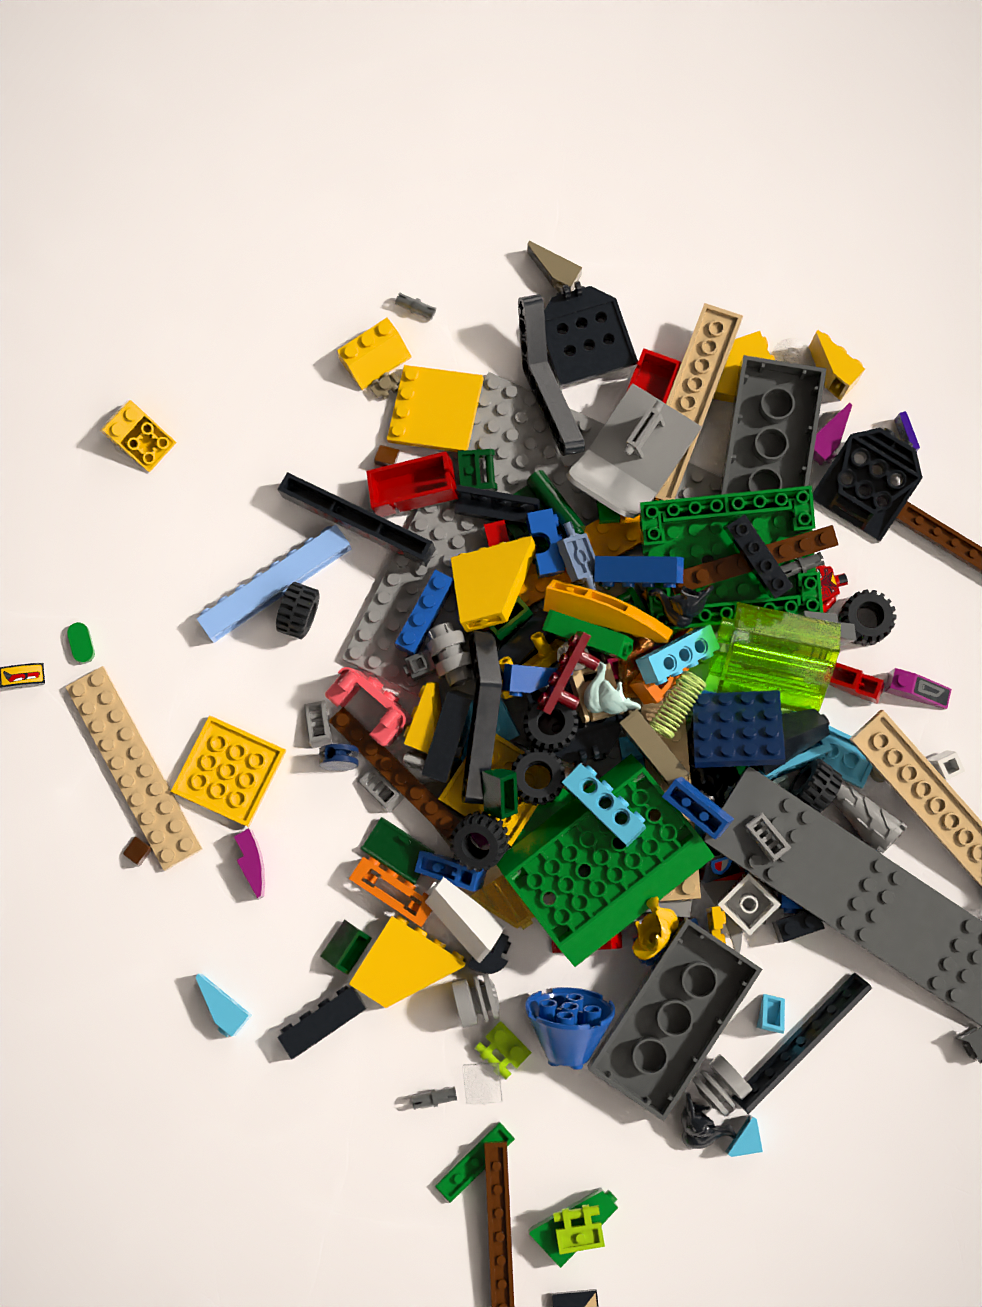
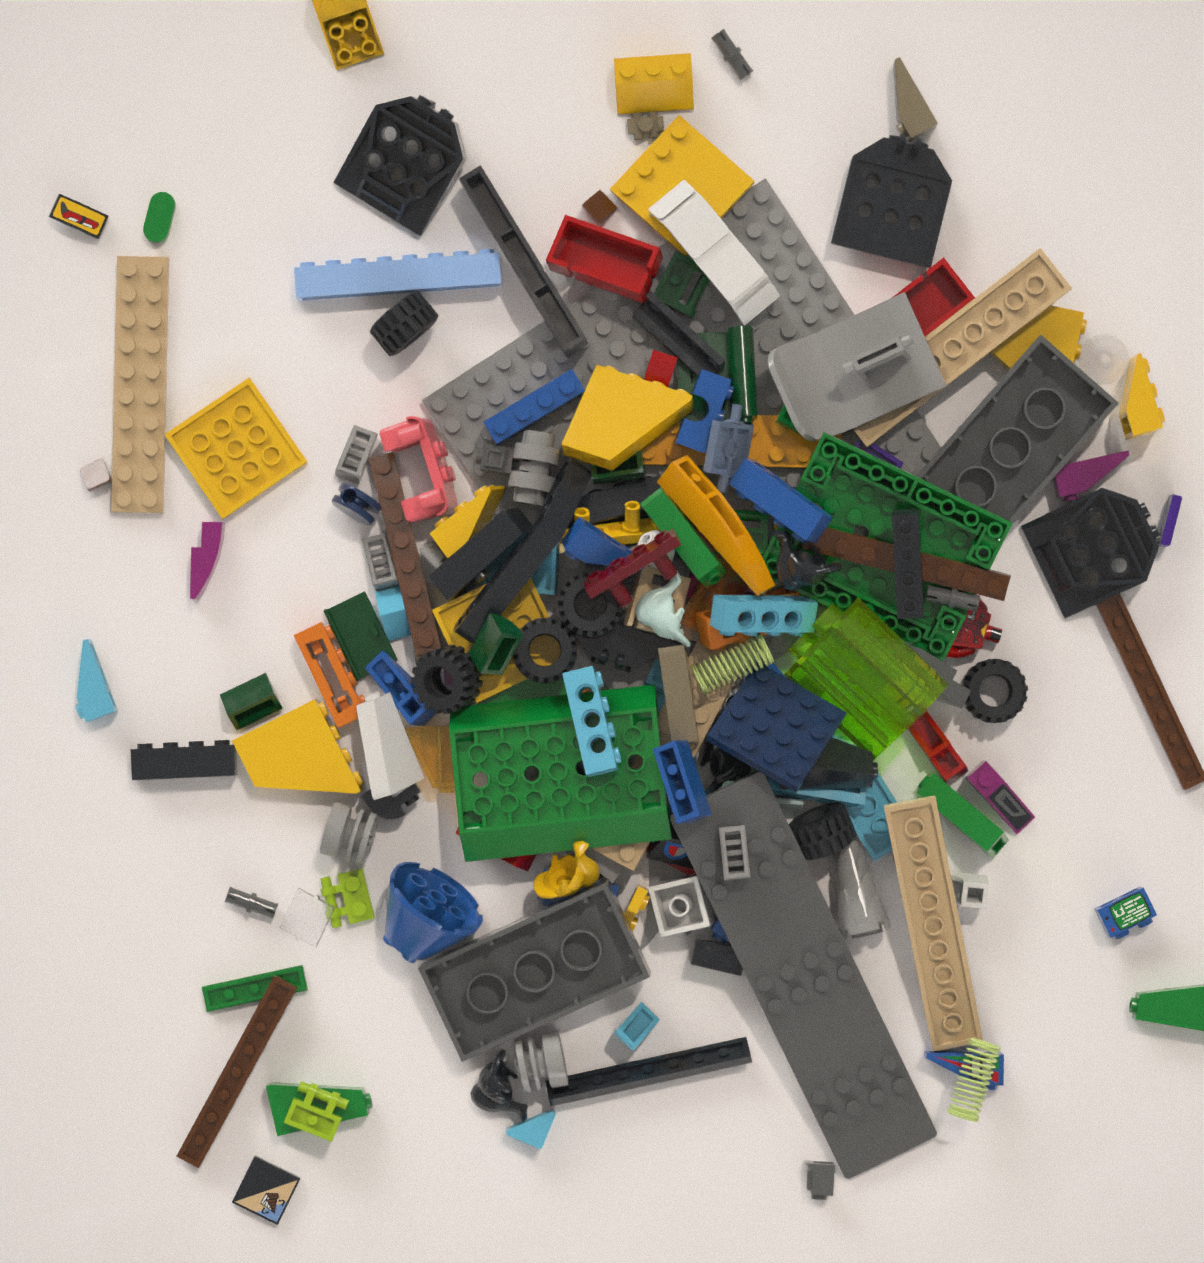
camera: 30 degrees right, 10 degrees up
(241, 532) = (434, 134): none -> black hinge
(412, 820) = (393, 613): none -> medium azure slope
(486, 430) = (715, 251): none -> white windscreen
(541, 378) = (815, 228): black beam -> none
(908, 717) = (964, 816): none -> green slope

